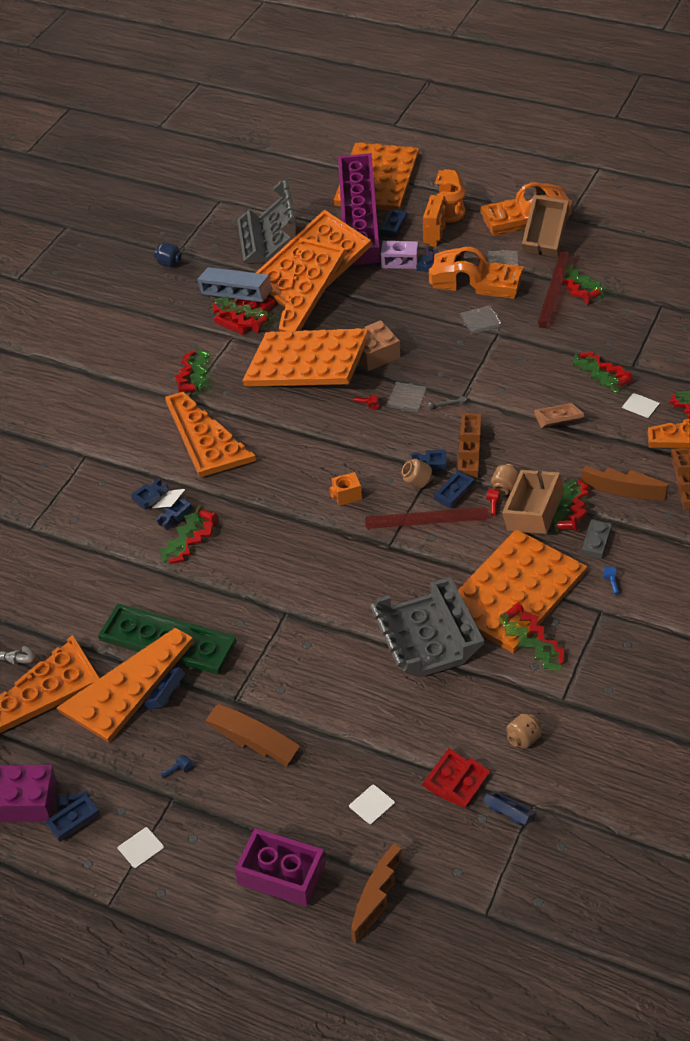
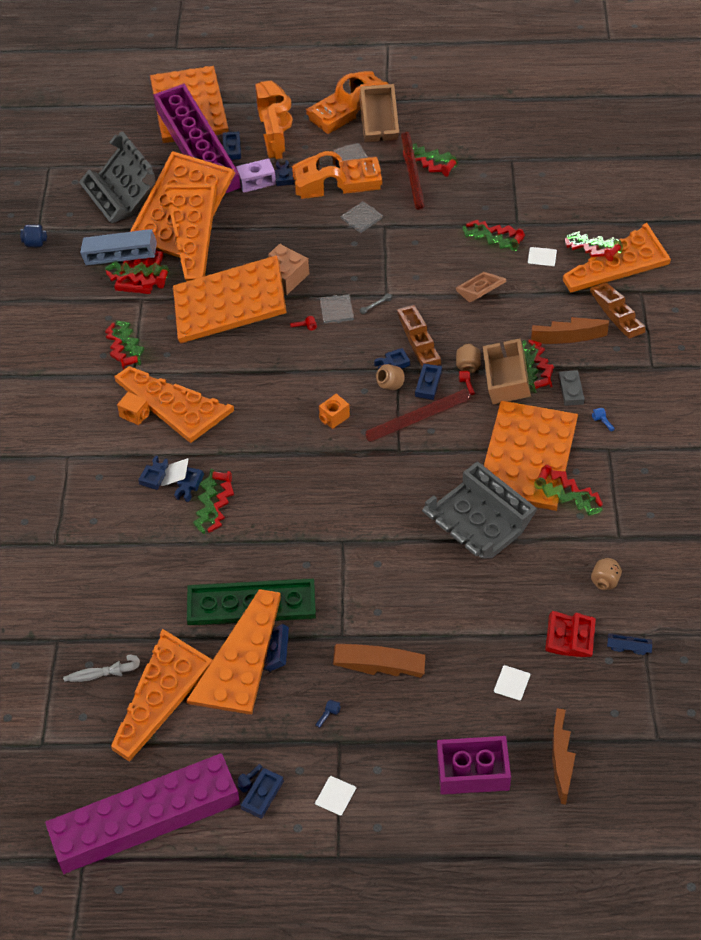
camera: 25 degrees left, 5 degrees up
(165, 430) = (133, 408): none -> orange brick

